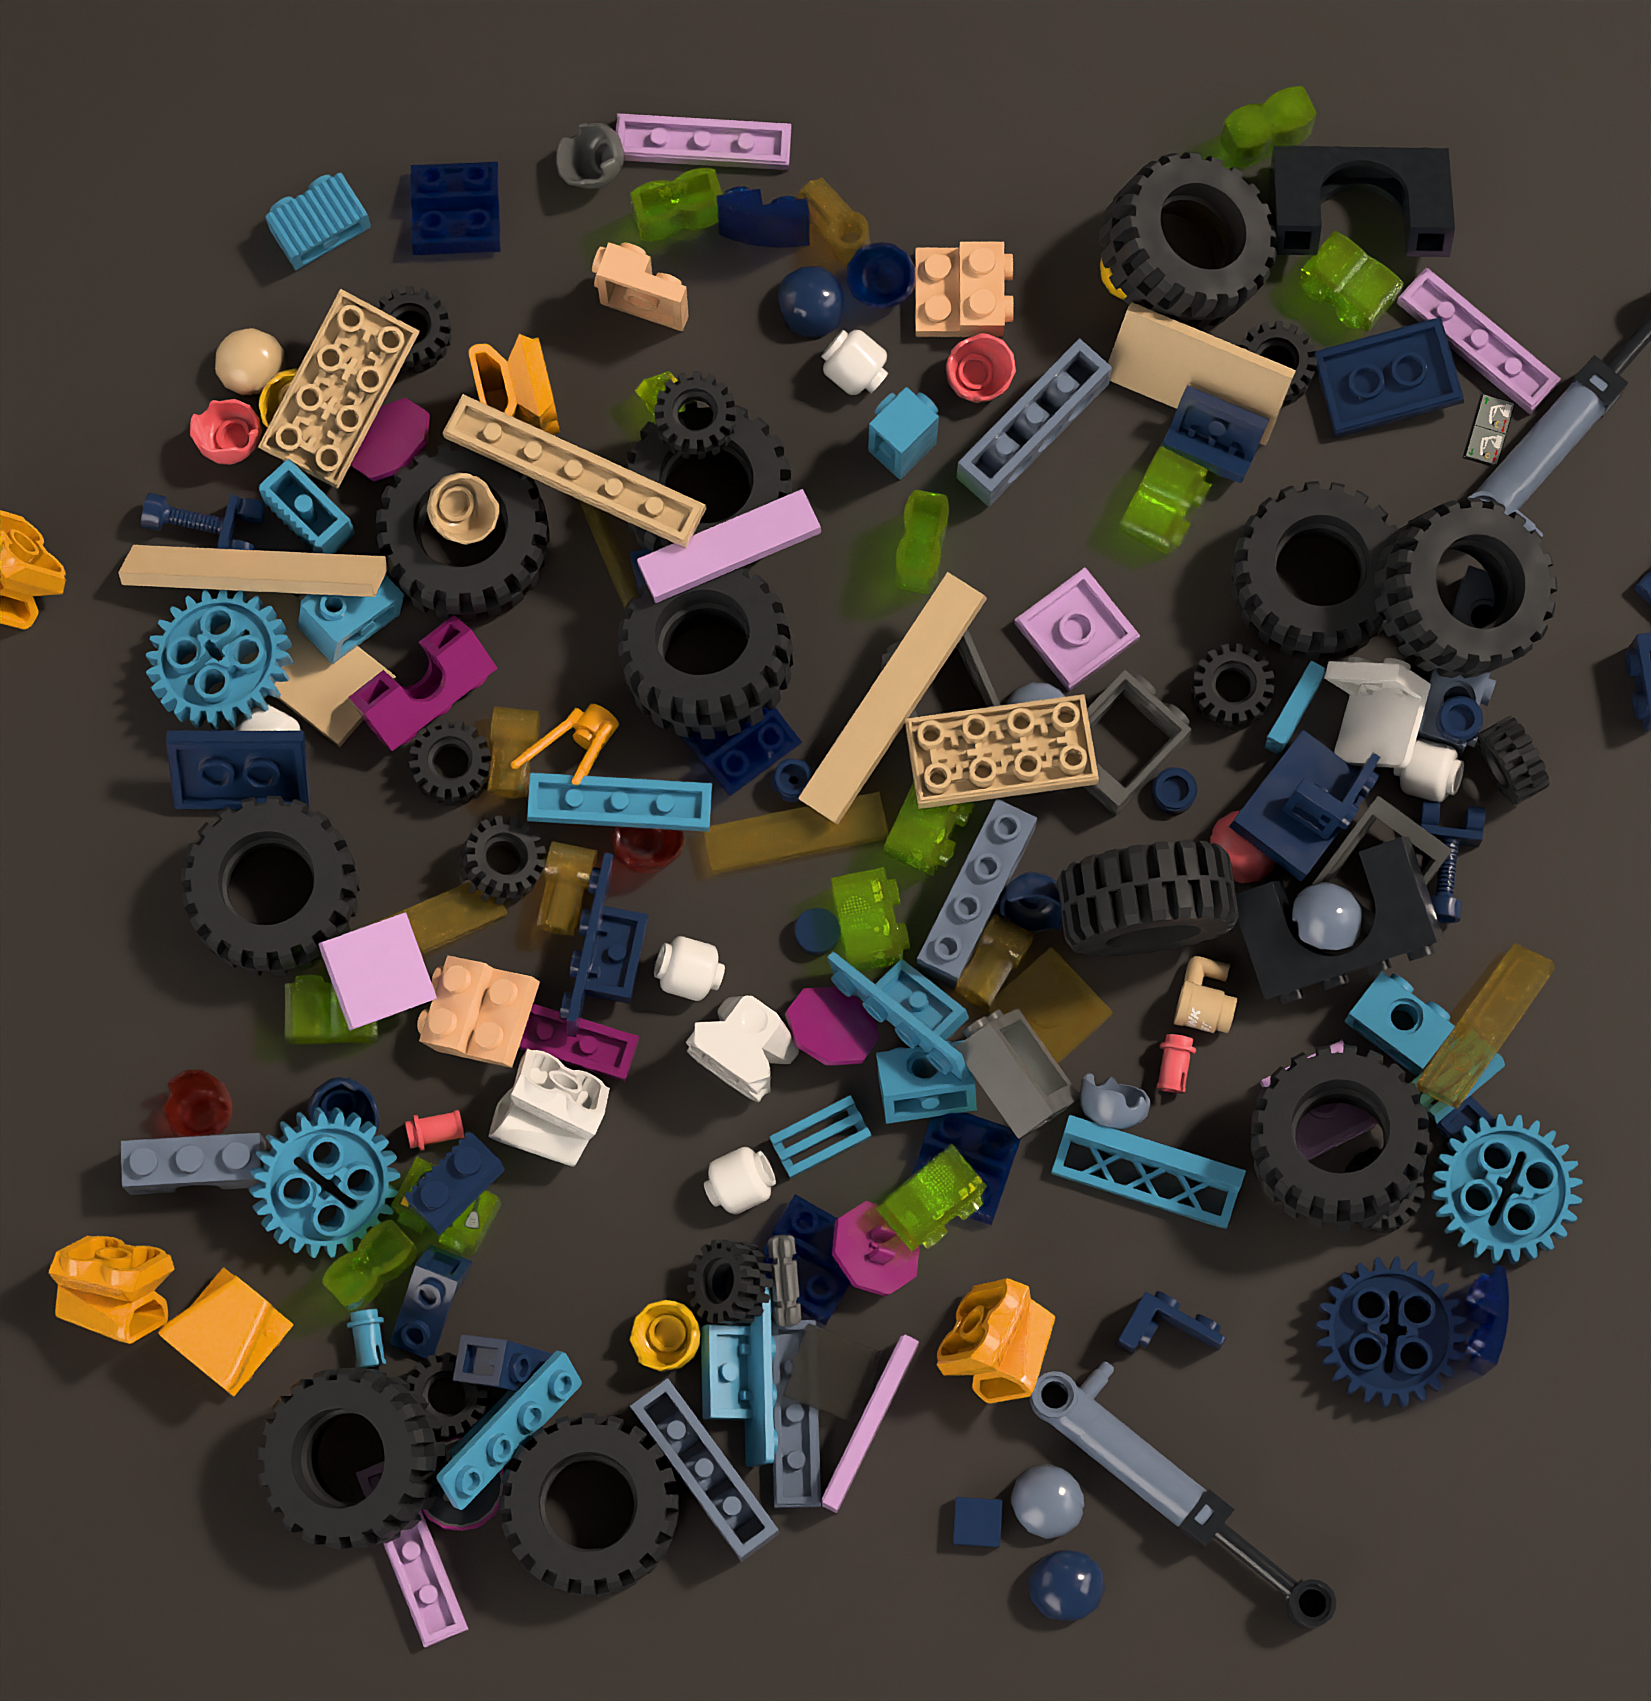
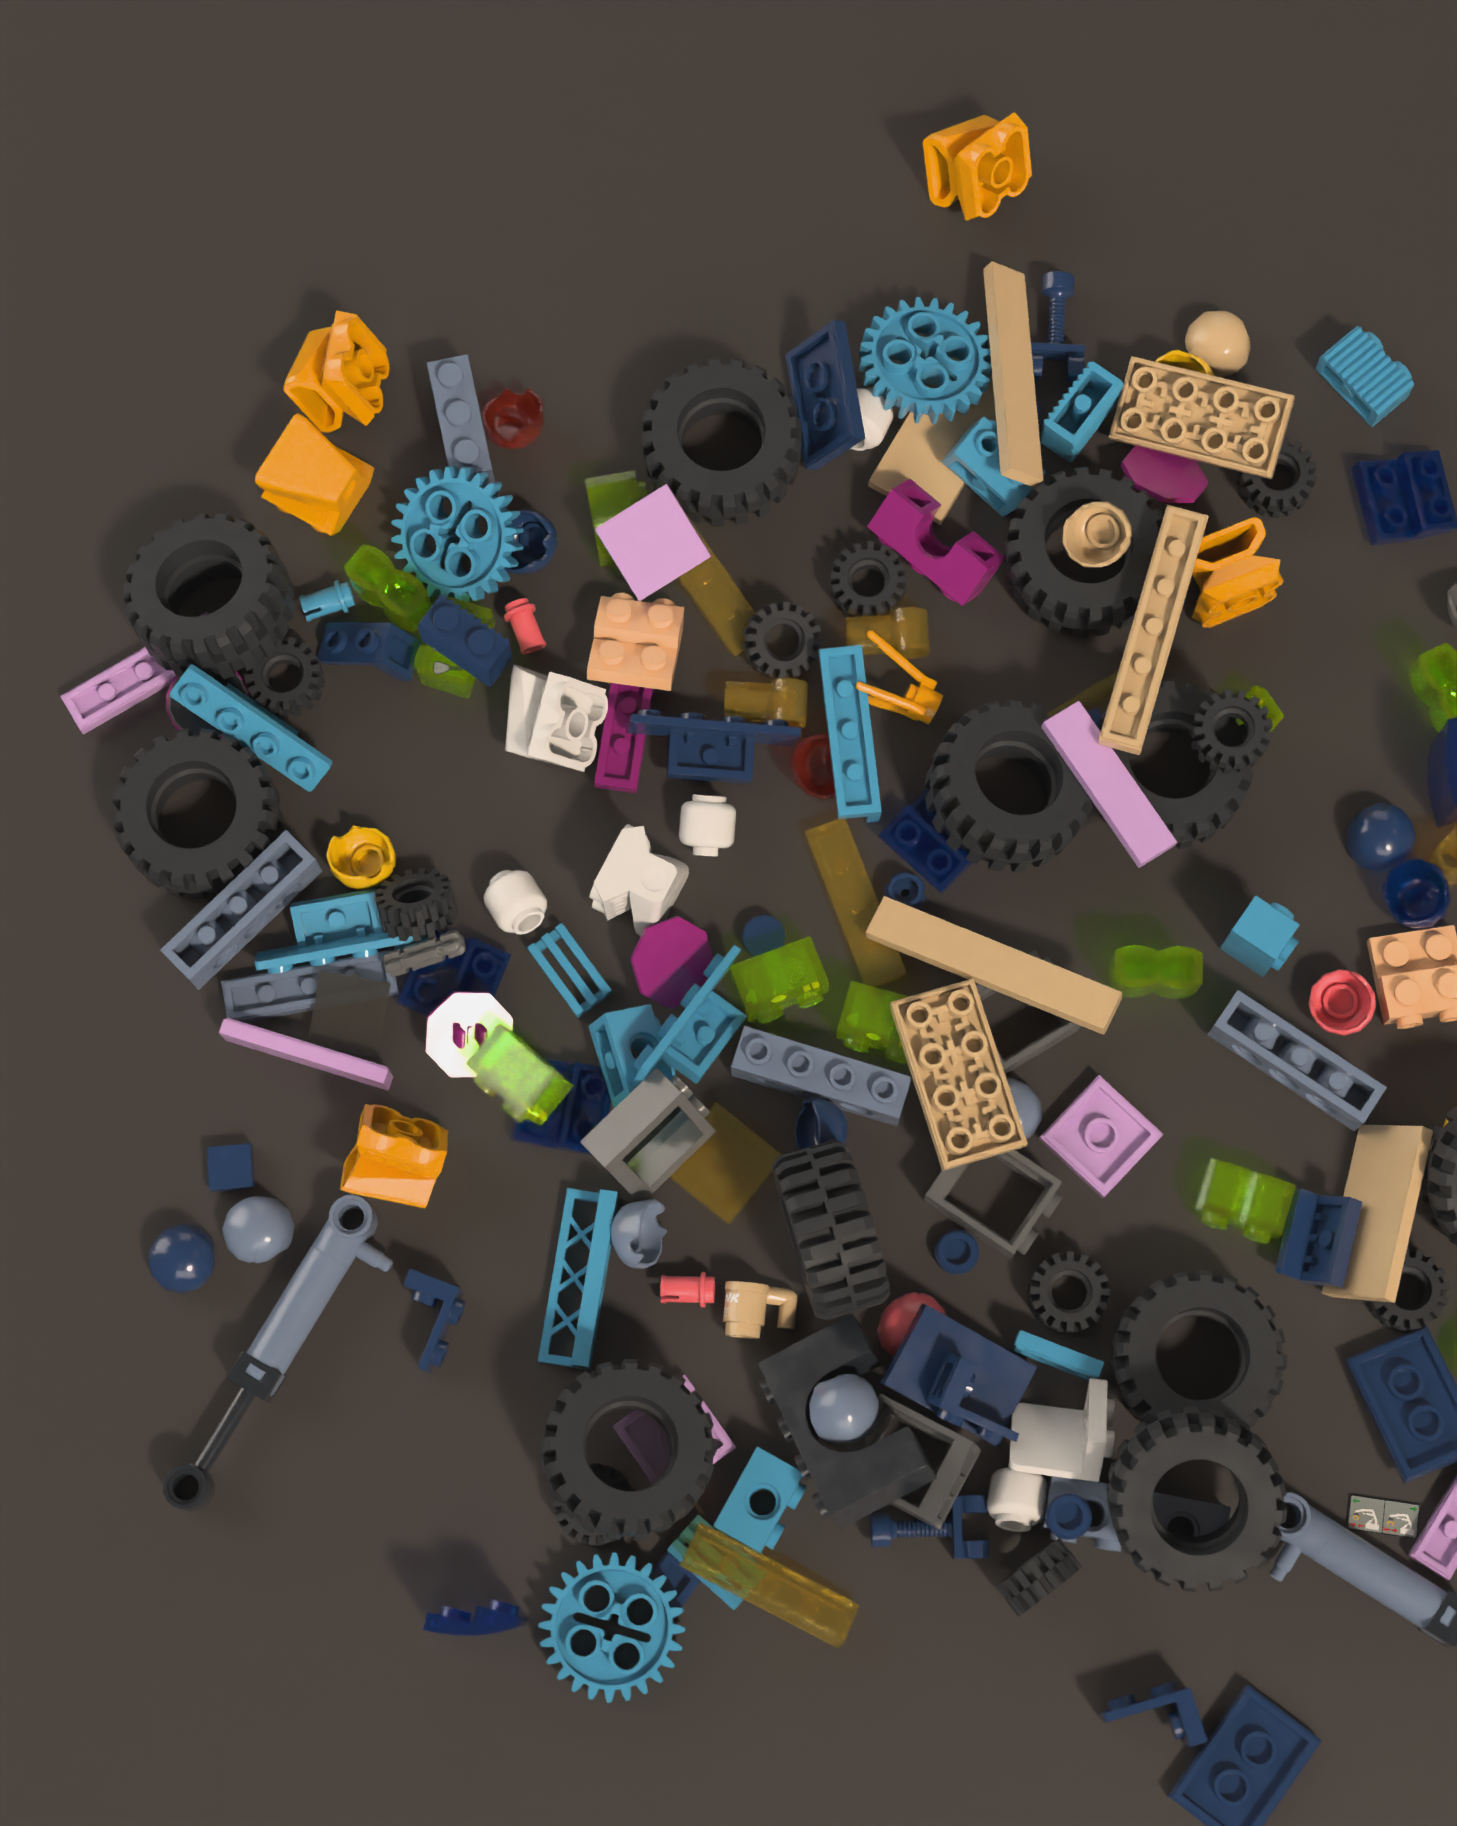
camera: 85 degrees right, 0 degrees up
(226, 431) = (1144, 329): coral hair -> none
(496, 1362) = (309, 711): dark blue bracket -> none
(628, 285) = (1359, 662): light nougat plate -> none
(855, 362) = (1325, 884): white head -> none
(998, 952) = (770, 1107): clear yellow piece -> none
(1432, 1337) = (457, 1572): dark blue gear -> none

